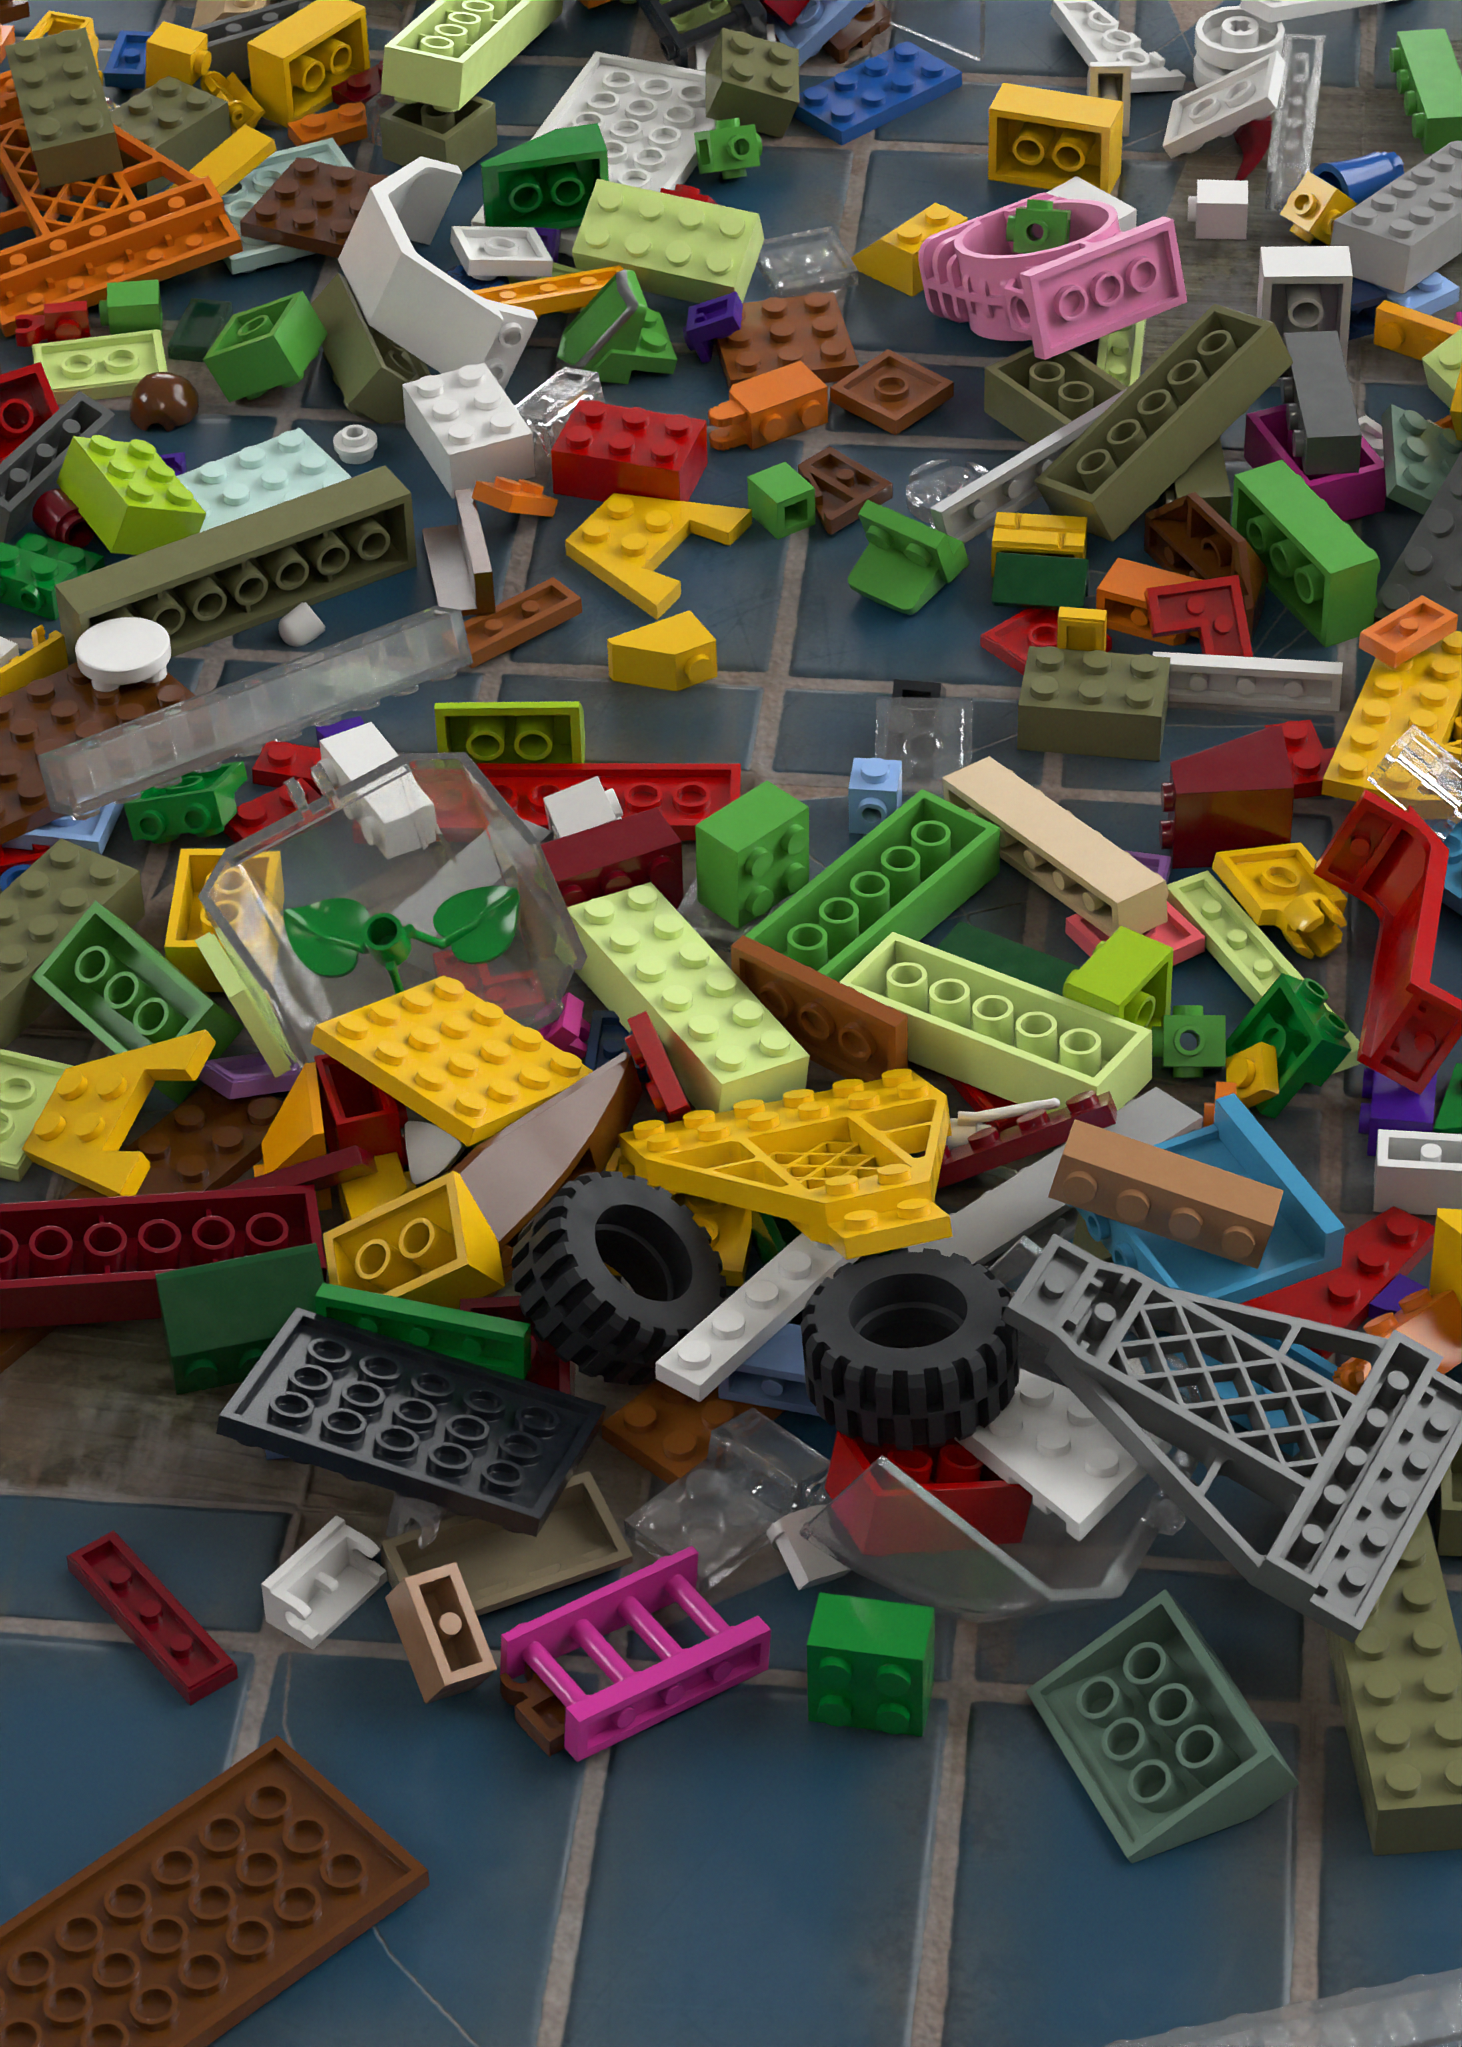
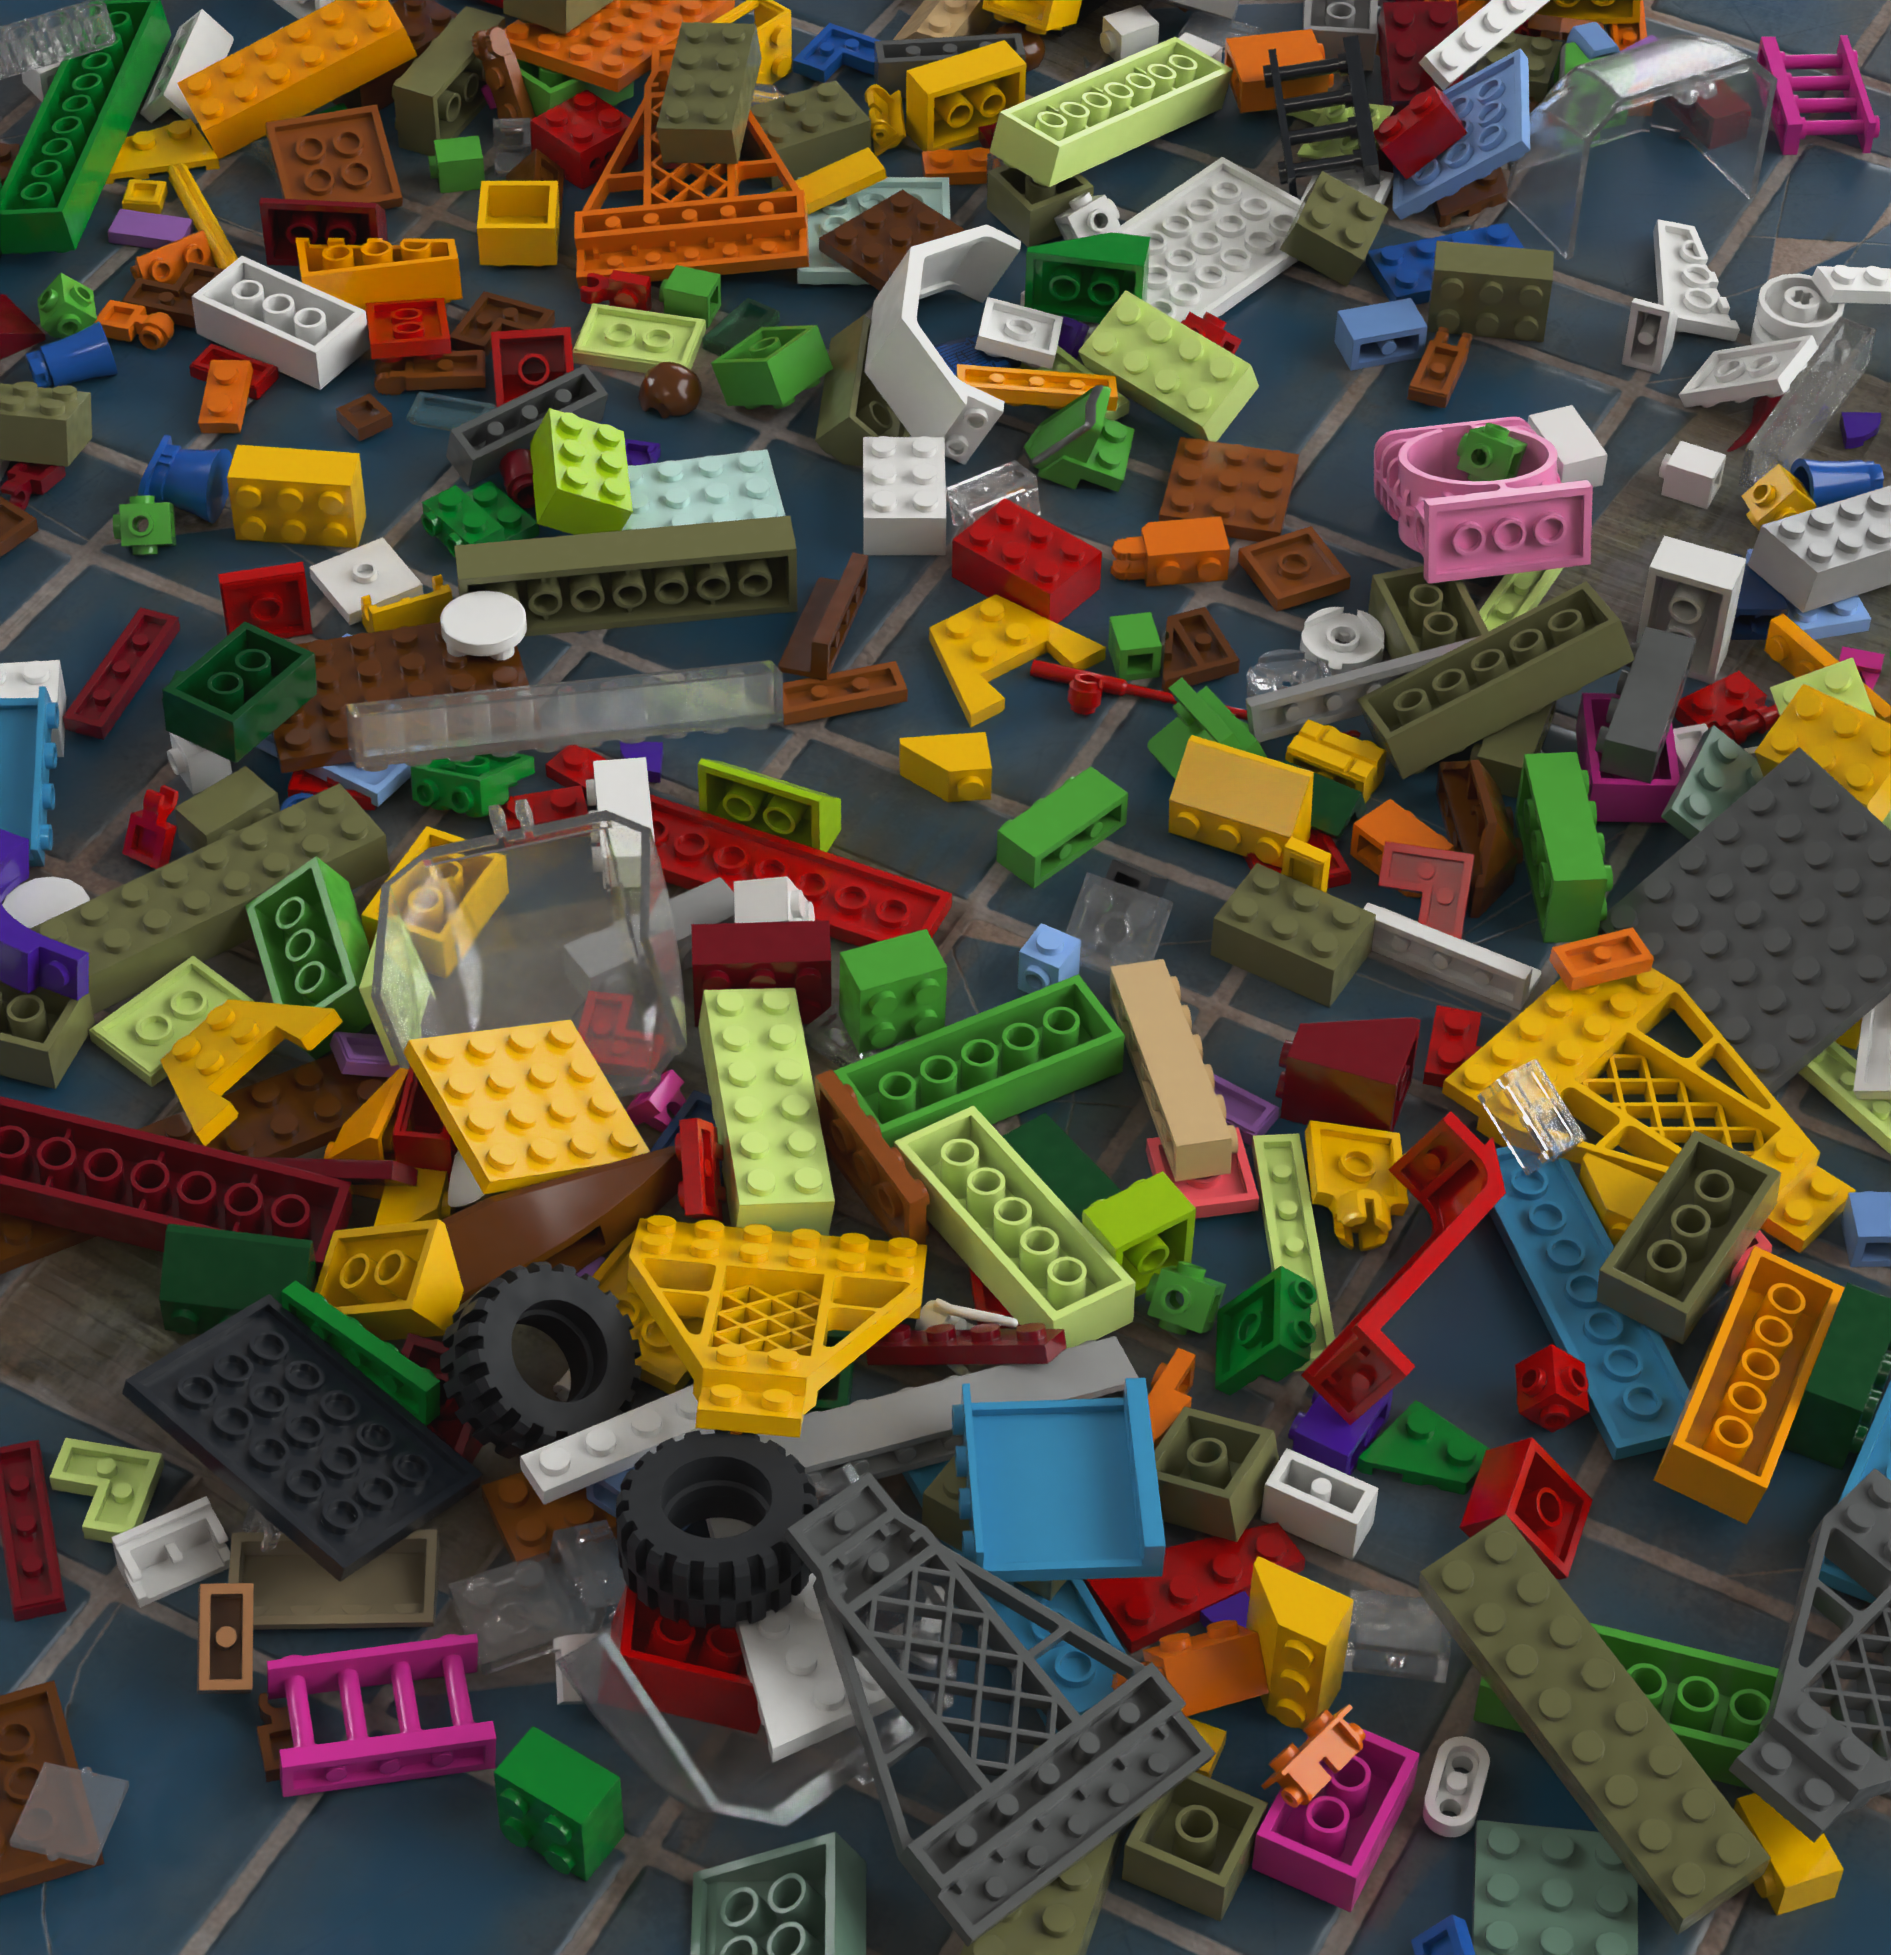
camera: 20 degrees right, 5 degrees up
(177, 54) = (850, 63): yellow slope -> none
(218, 1534) = (115, 1476): none -> yellowish green plate
(300, 626) = (665, 639): white piece -> none
(335, 930) = (499, 953): green plant -> none
(355, 444) = (807, 479): white plate -> none
(374, 1845) = (69, 1813): none -> clear piece
(501, 132) = (1088, 217): none -> white brick
(515, 497) = (903, 575): orange plate -> none
(712, 320) = (1168, 454): dark purple bracket -> none
(728, 148) = (1269, 280): bright green brick -> none
(759, 549) = (1087, 689): none -> red piece
(806, 263) = (1290, 419): clear plate -> none
(809, 676) = (1061, 827): none -> bright green brick
(848, 166) = (1380, 334): none -> medium blue brick
(895, 255) = (1364, 431): yellow slope -> none
(921, 180) = (1439, 369): none -> dark orange hinge
(933, 98) = (1490, 291): none -> olive brick
(978, 599) = (1240, 800): none -> yellow slope
(979, 439) = (1329, 624): none -> white plate
(1052, 137) = (1573, 363): yellow brick -> none
(1166, 1194) = (1019, 1458): medium nougat brick -> none
(1254, 1073) = (1219, 1350): yellow plate -> none
(1335, 1162) = (1213, 1472): none -> olive brick
(1345, 131) = (1858, 427): none -> dark purple tile
(1377, 388) = (1725, 704): none -> red plate

